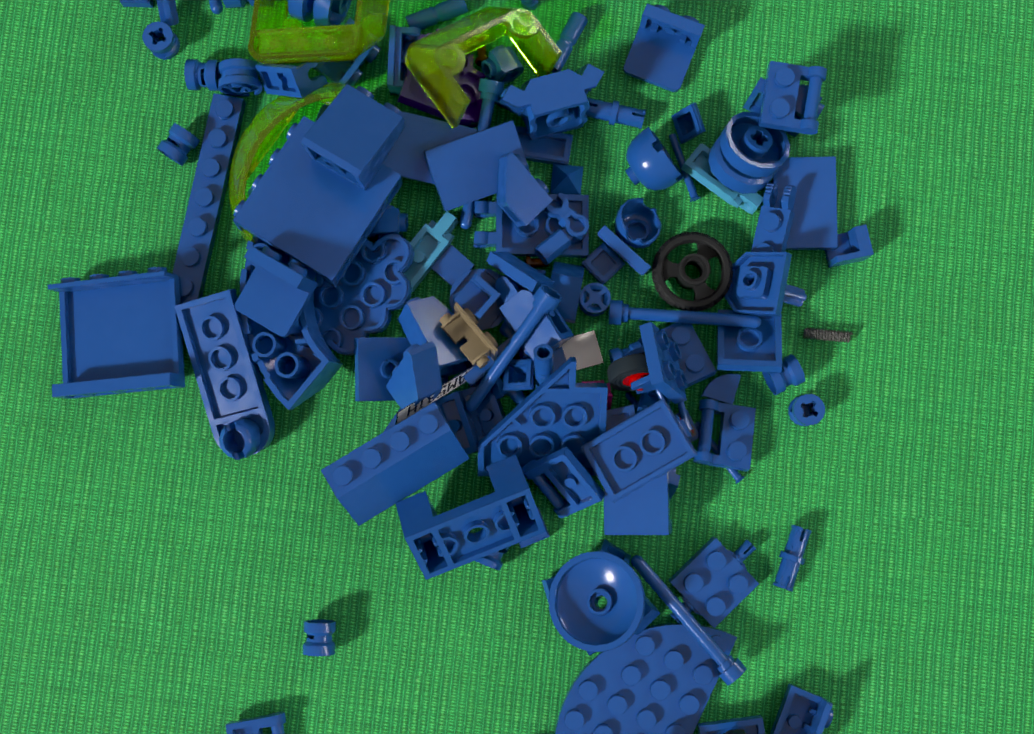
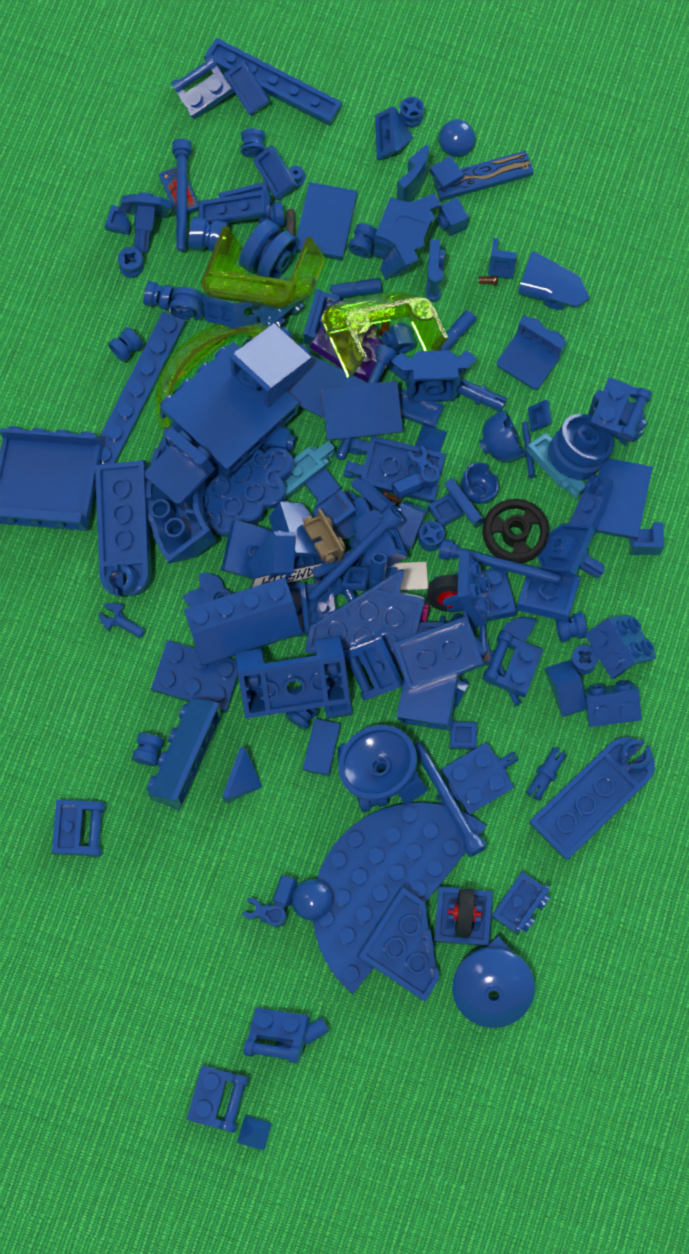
camera: 10 degrees right, 10 degrees down
(251, 485) = (119, 620): none -> blue bar
(339, 539) = (185, 678): none -> blue plate
(346, 433) = (210, 589): none -> blue plate
(363, 636) = (185, 753): none -> blue slope
(439, 646) = (242, 778): none -> blue slope
(519, 192) = (389, 436): blue slope -> none
(522, 585) = (321, 747): none -> blue tile
(686, 533) = (463, 736): none -> blue tile
(792, 447) = (566, 688): none -> blue slope
(829, 335) = (615, 605): dark grey piece -> none
(848, 386) = (620, 644): none -> blue bracket
(851, 455) = (612, 703): none -> blue bracket
(855, 572) = (594, 796): none -> blue plate

